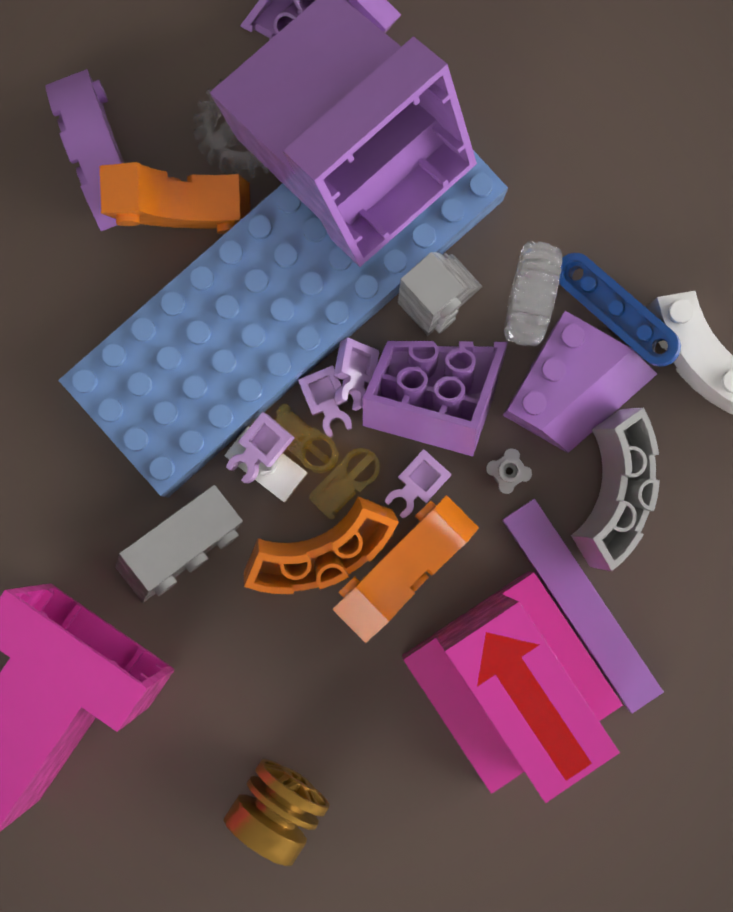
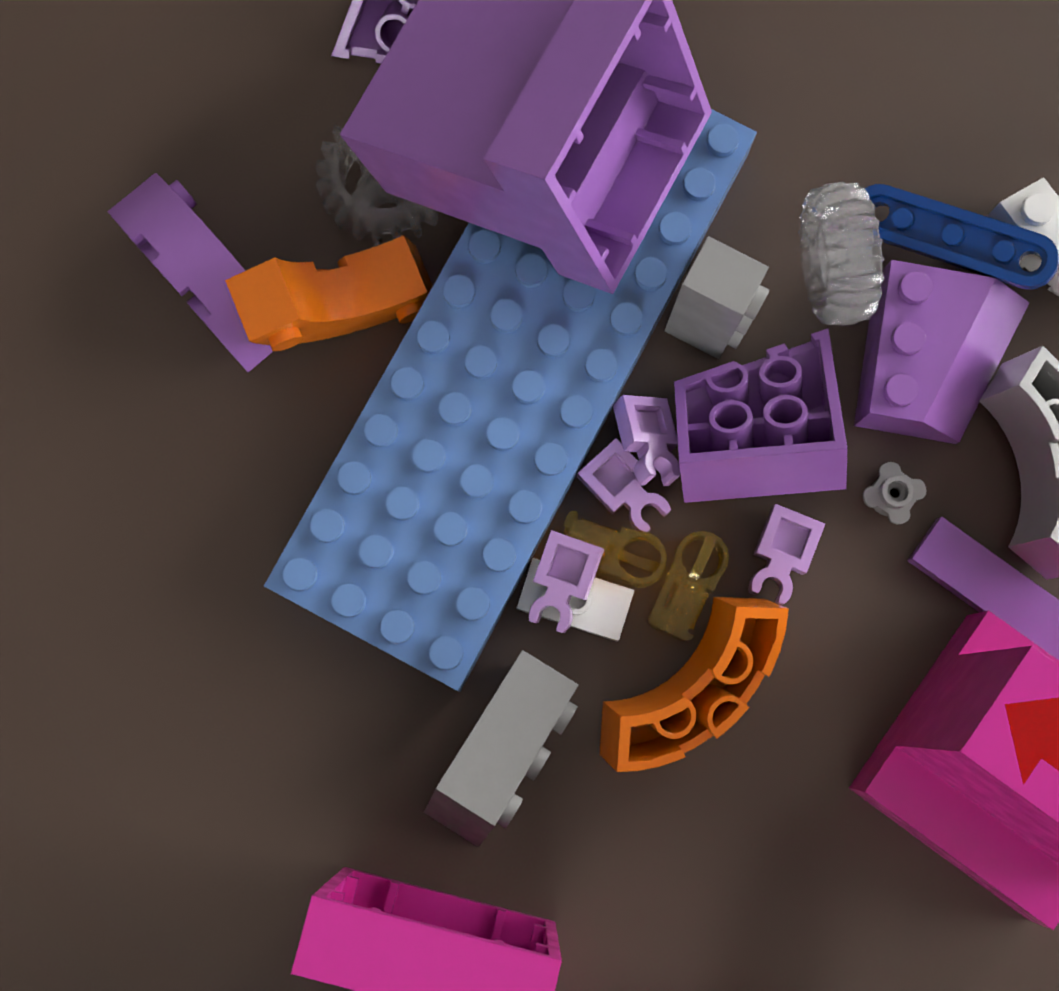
camera: 25 degrees left, 5 degrees down
(395, 578) = (802, 700): orange brick -> none

